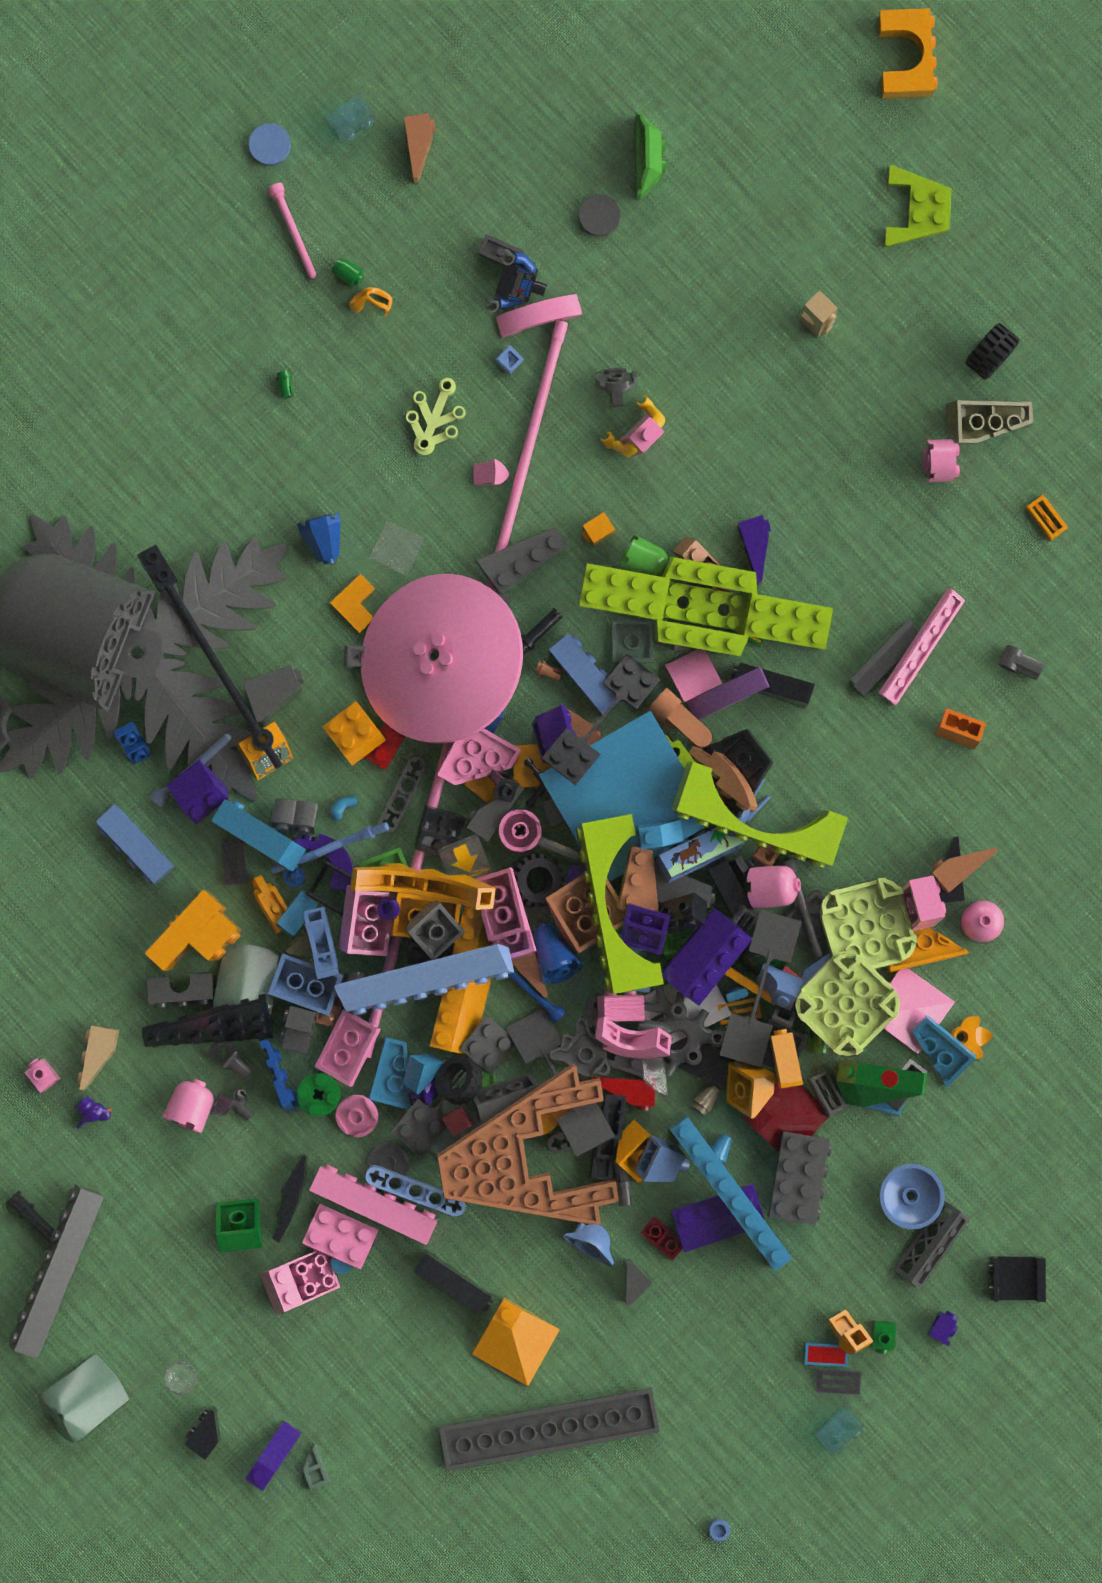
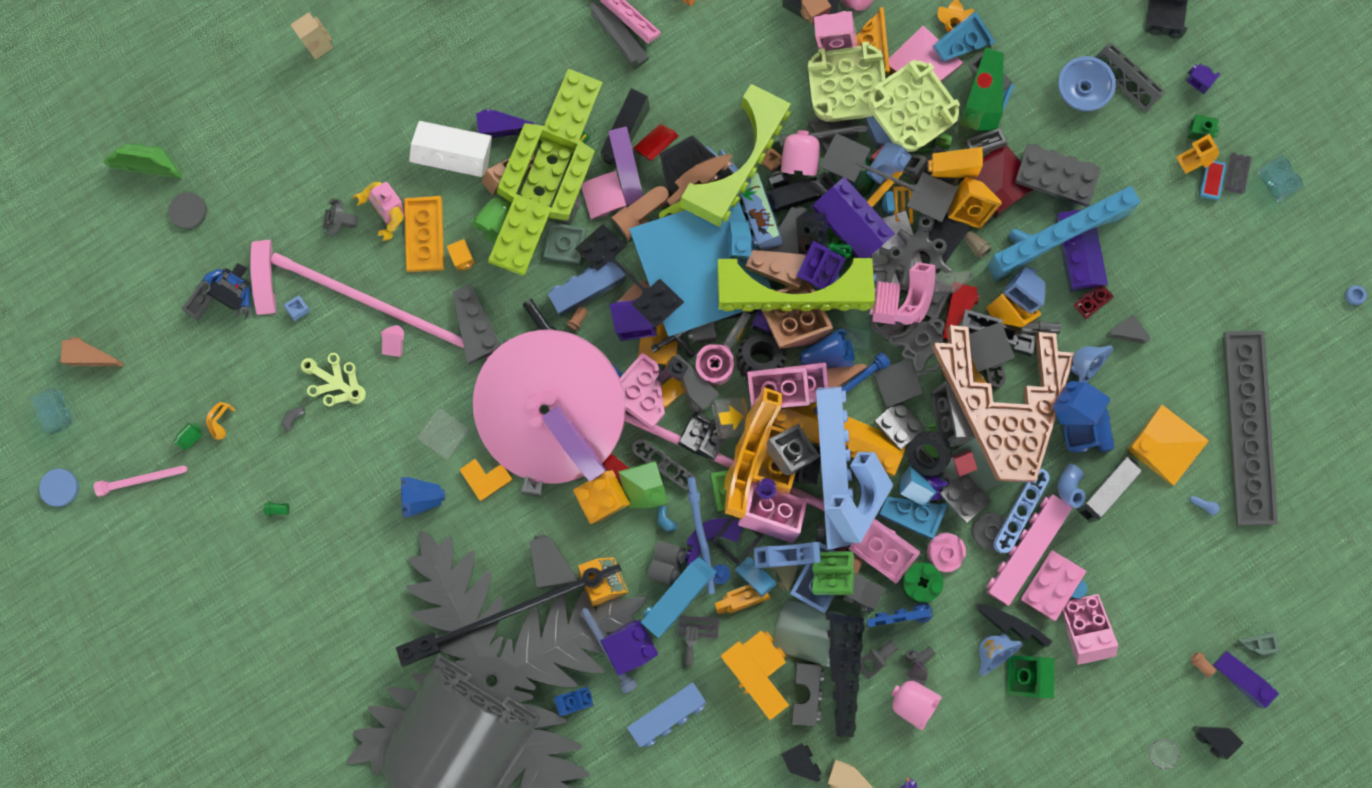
camera: 70 degrees left, 5 degrees down
(108, 993) = (799, 762): none -> black slope
(218, 856) = (691, 639): none -> dark grey piece
(258, 1183) = (995, 651): none -> medium blue hat
(285, 1404) = (1202, 664): none -> nougat pin
(309, 996) = (834, 574): none -> bright green slope
(373, 776) = (643, 486): none -> bright green slope
(387, 377) = (289, 417): none -> dark grey arm
(401, 693) = (573, 443): none -> medium lavender slope
(412, 1027) = (875, 485): none -> light blue arch
(448, 1237) = (1068, 486): none -> medium blue cylinder
(453, 1397) = (1211, 507): none -> medium blue piece
(513, 1253) = (1082, 437): none -> blue piece
(540, 1237) = (1080, 404): none -> blue slope
(617, 483) = (424, 234): none -> light orange tile
(670, 946) = (840, 249): none -> green pin
(715, 494) = (450, 149): none -> white slope
(762, 721) = (655, 142): none -> red tile

